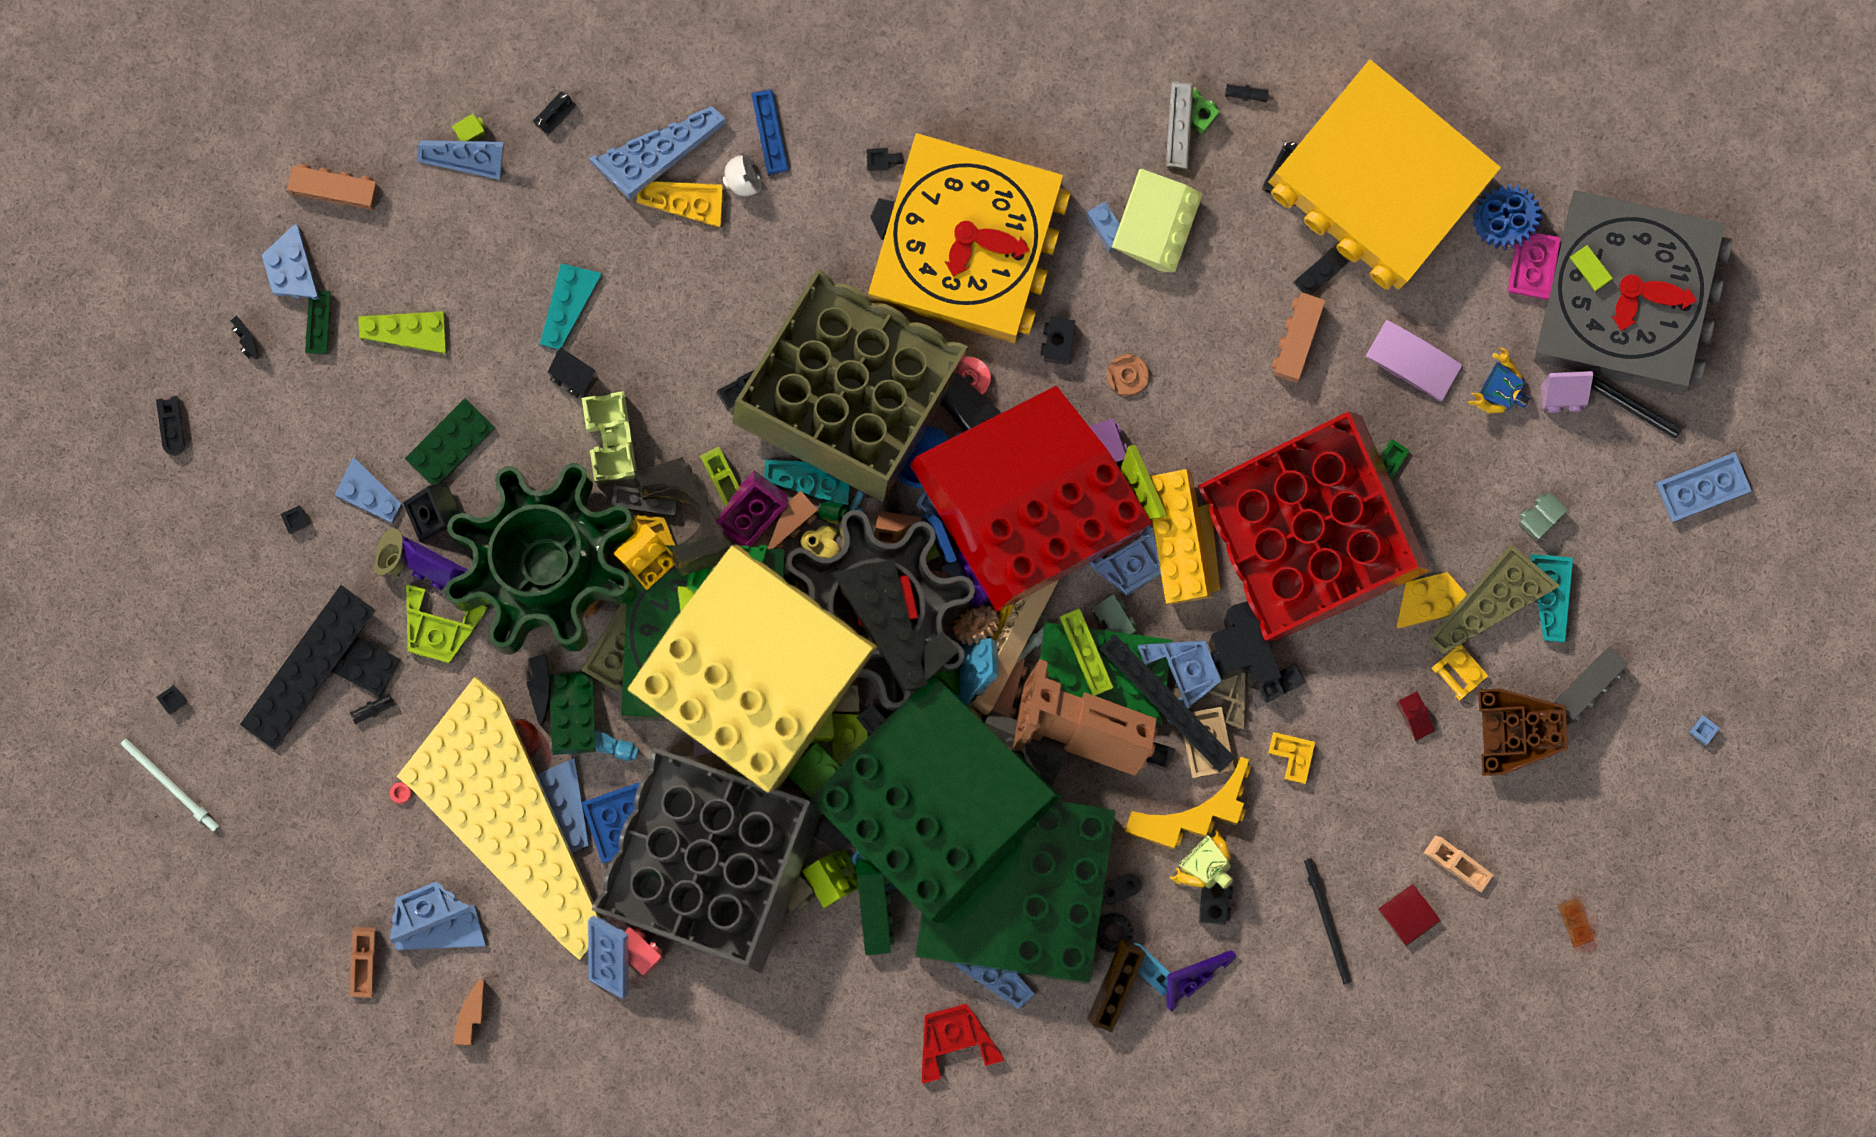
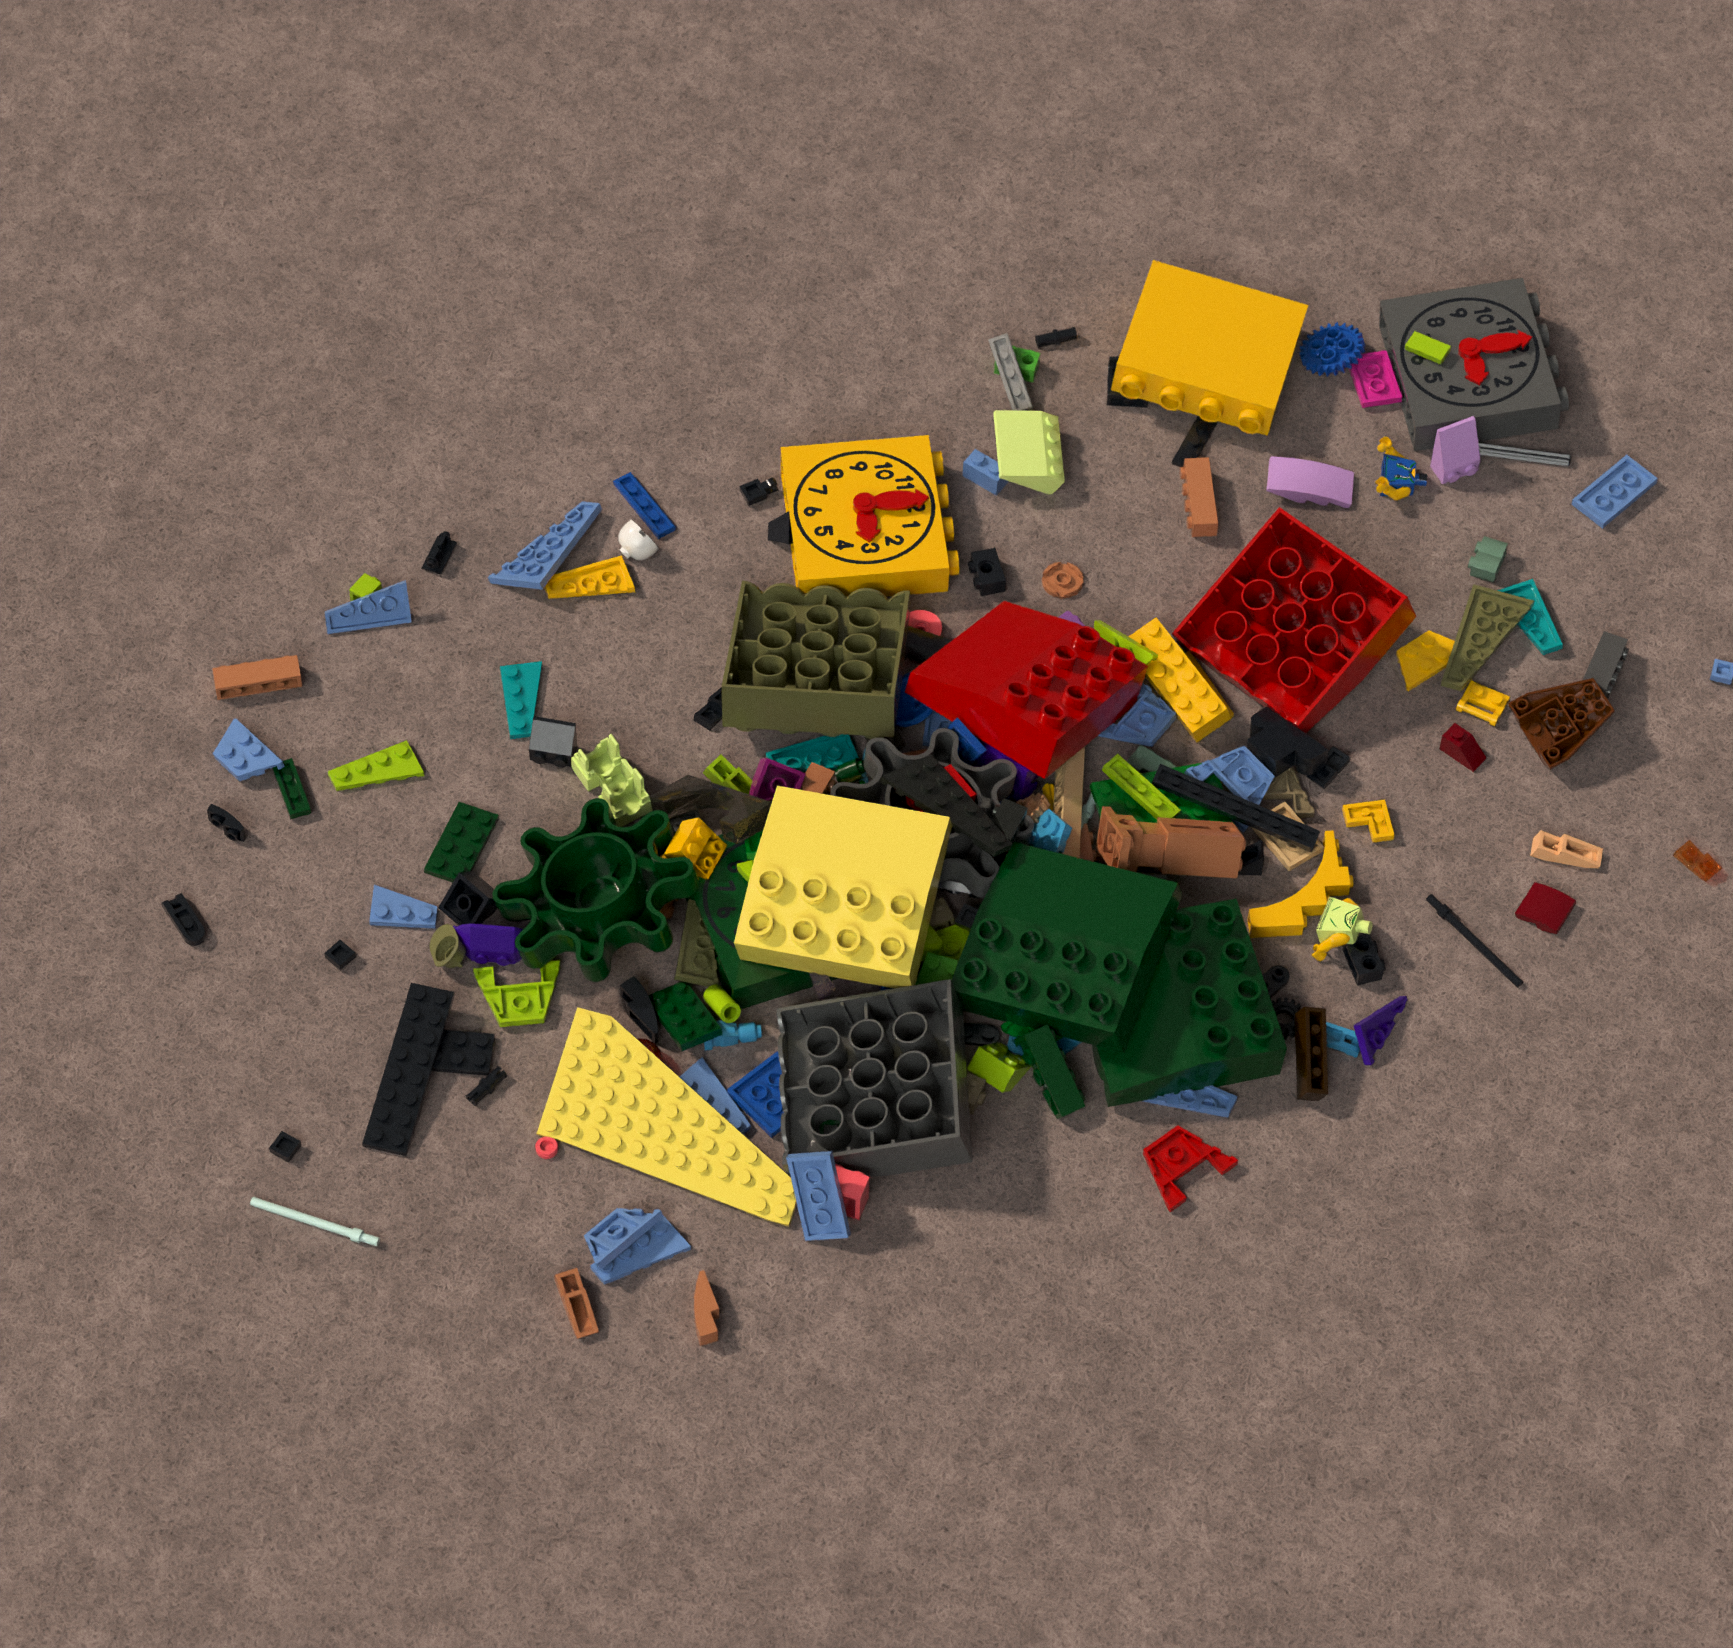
camera: 20 degrees left, 25 degrees down
(611, 715) = (722, 1003): none -> lime brick

